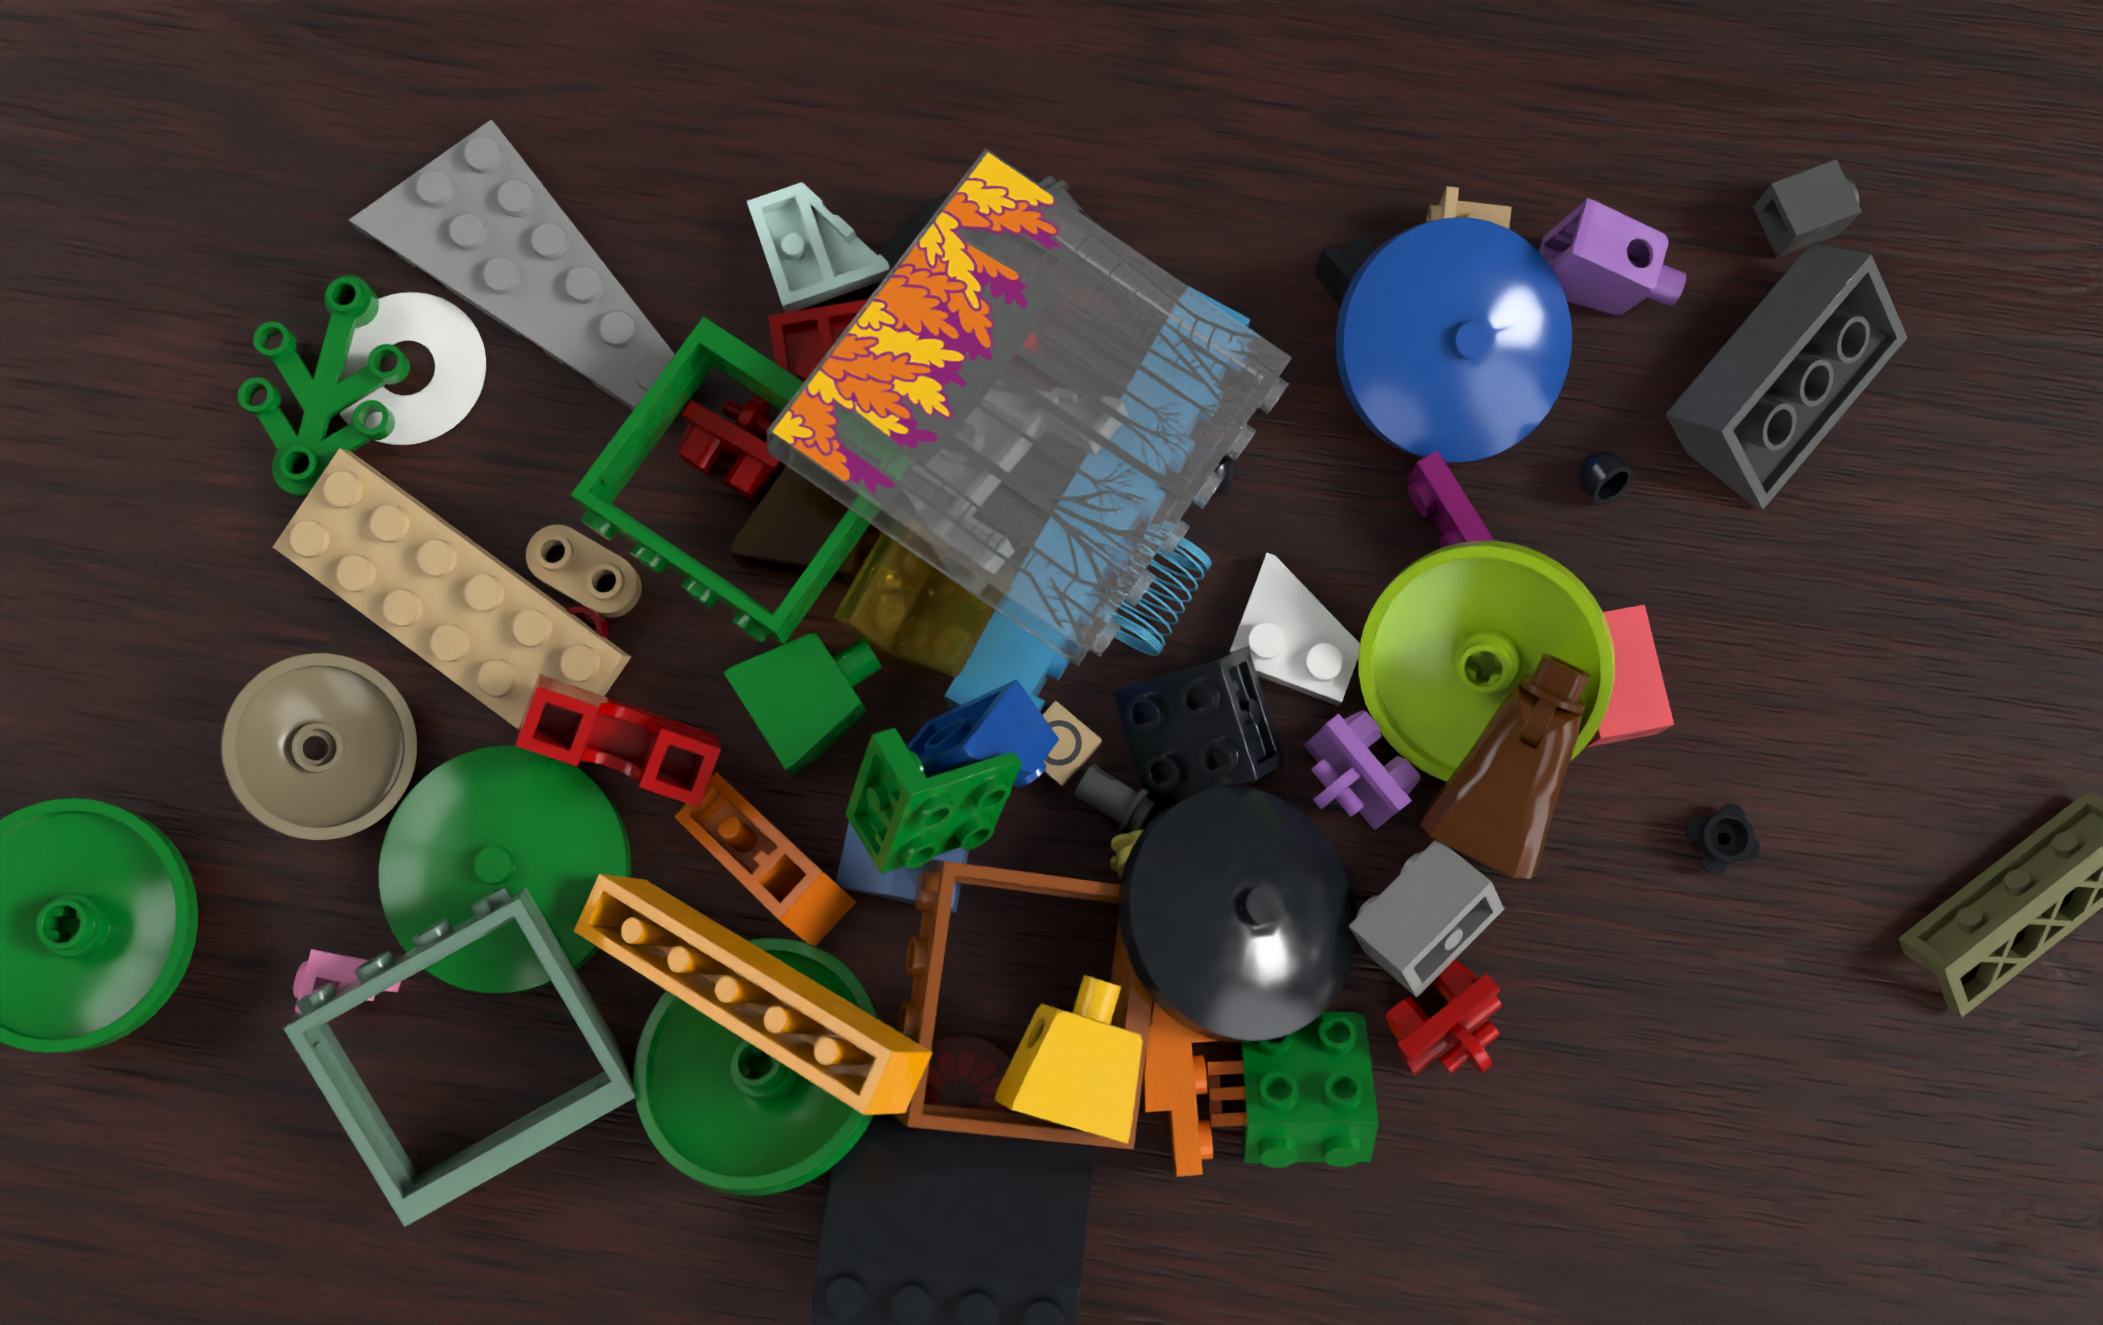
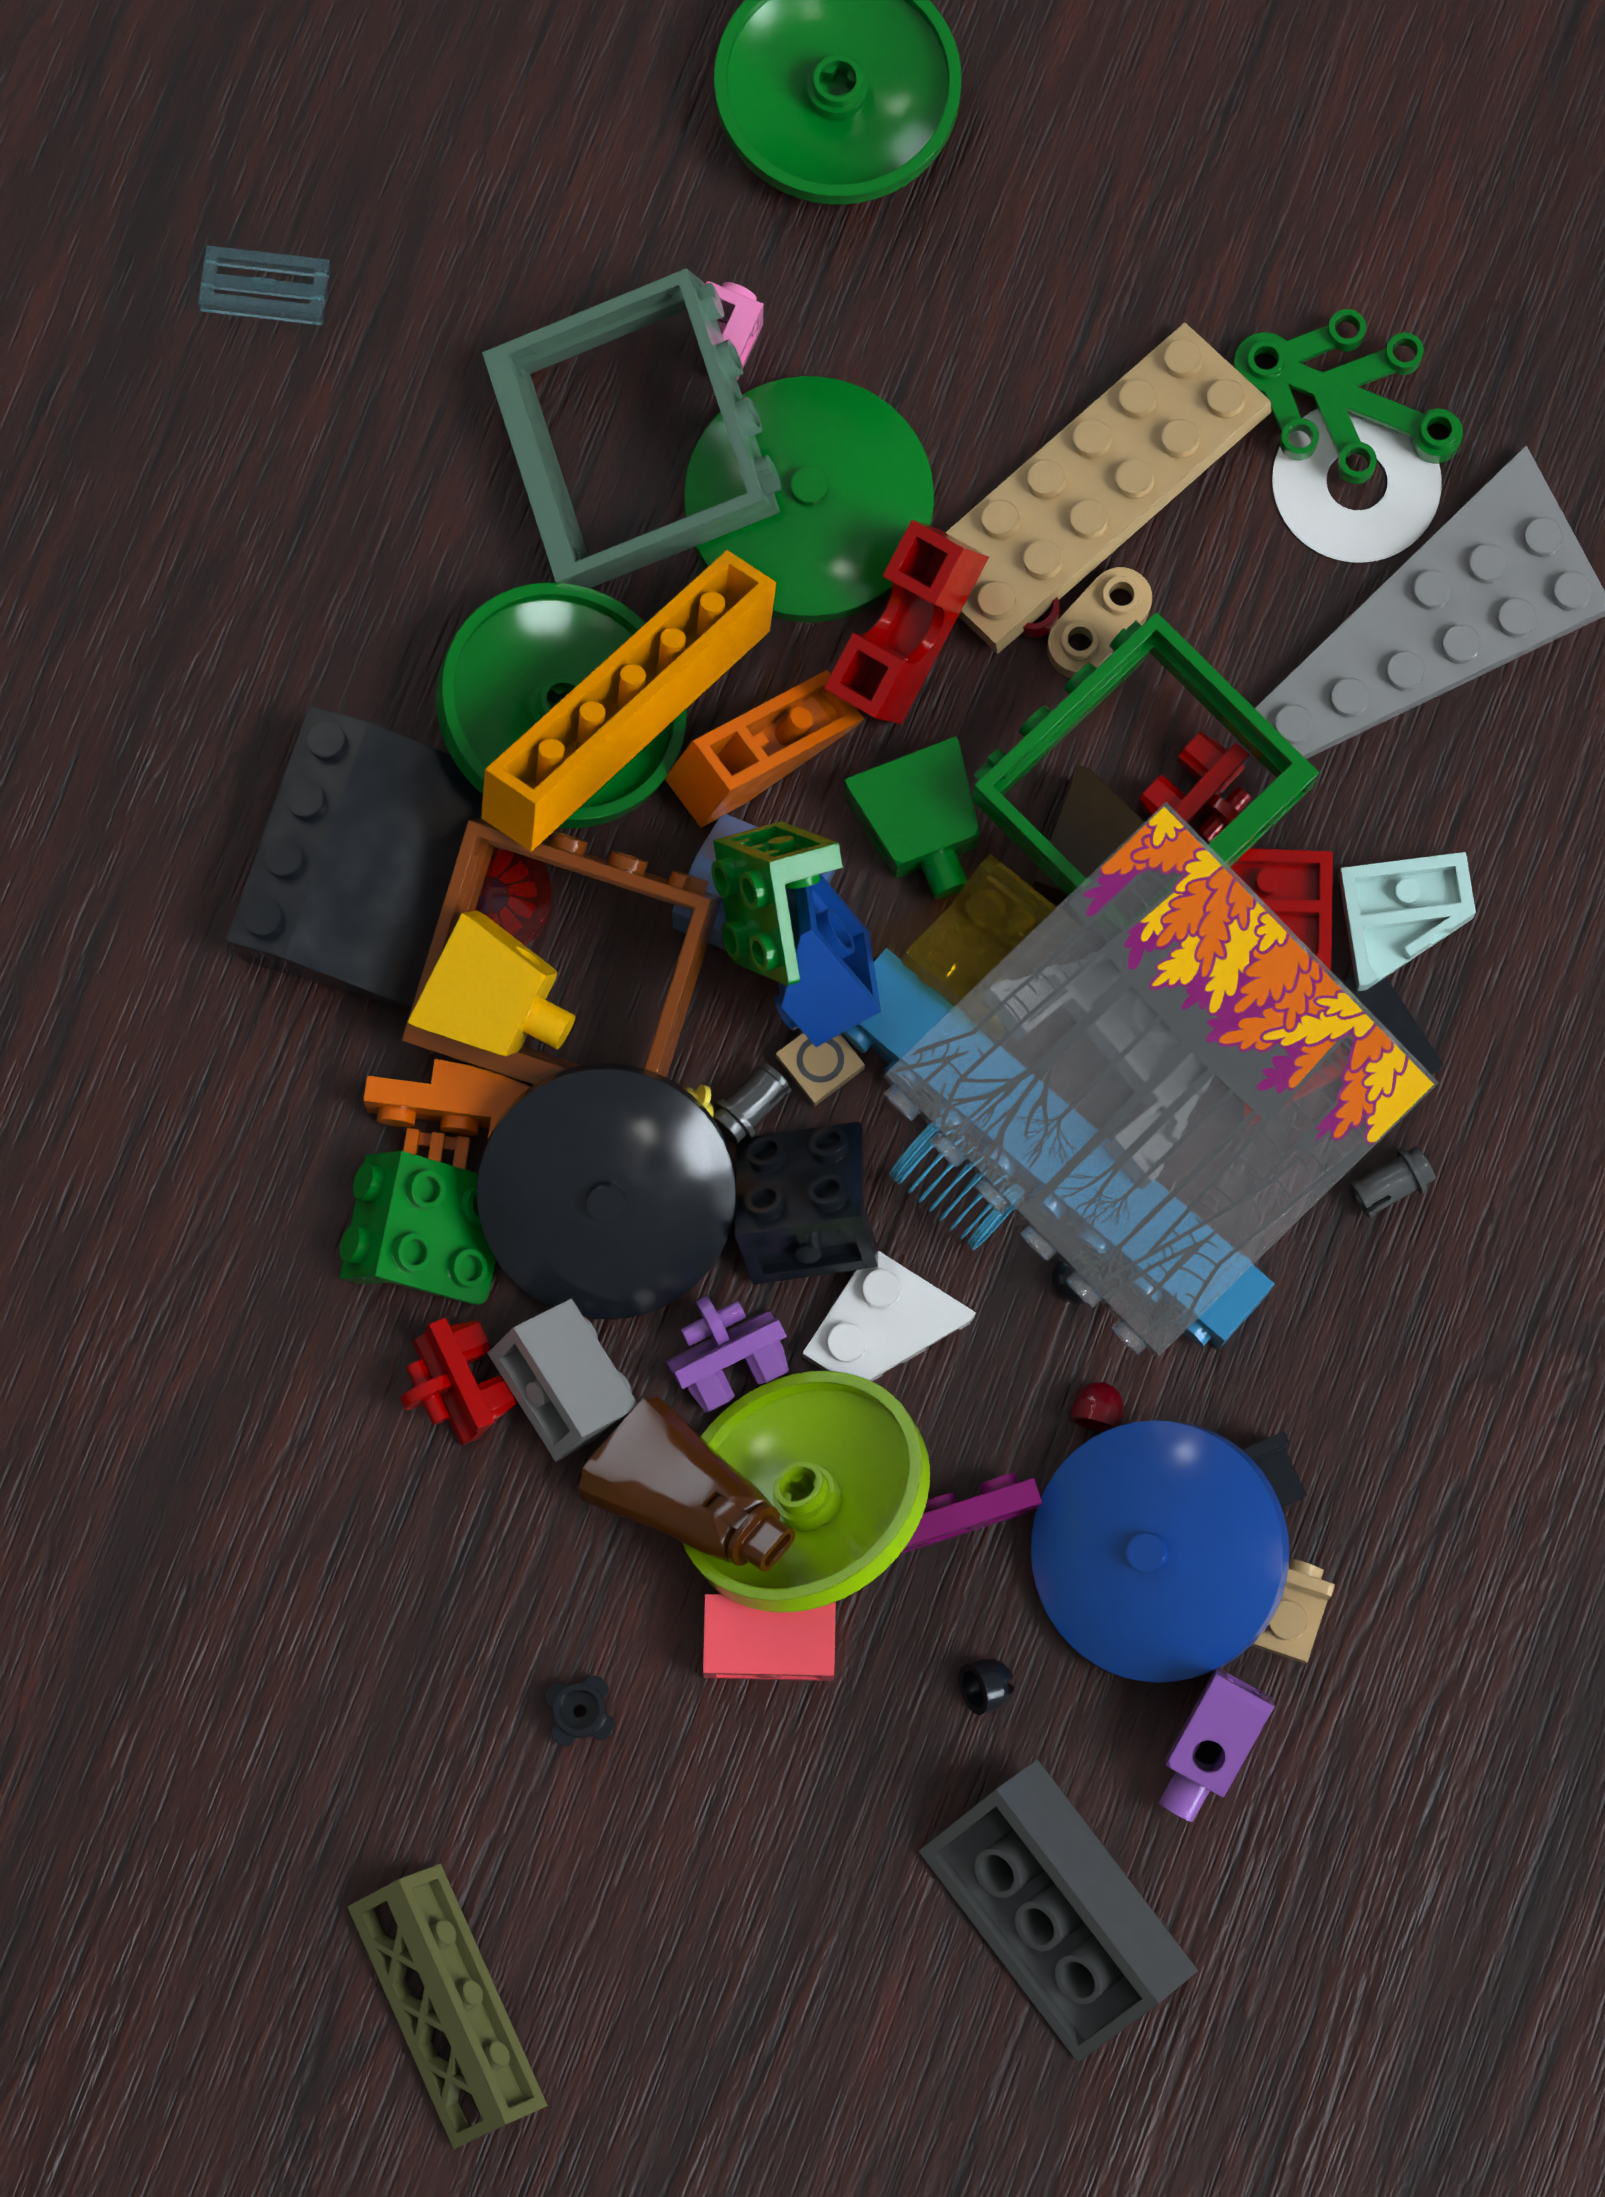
camera: 95 degrees right, 0 degrees up
(364, 737) = (935, 372): dark tan dish -> none
(1327, 426) = (1098, 1407): none -> dark red hinge
(1807, 208) = (1241, 1985): dark grey brick -> none

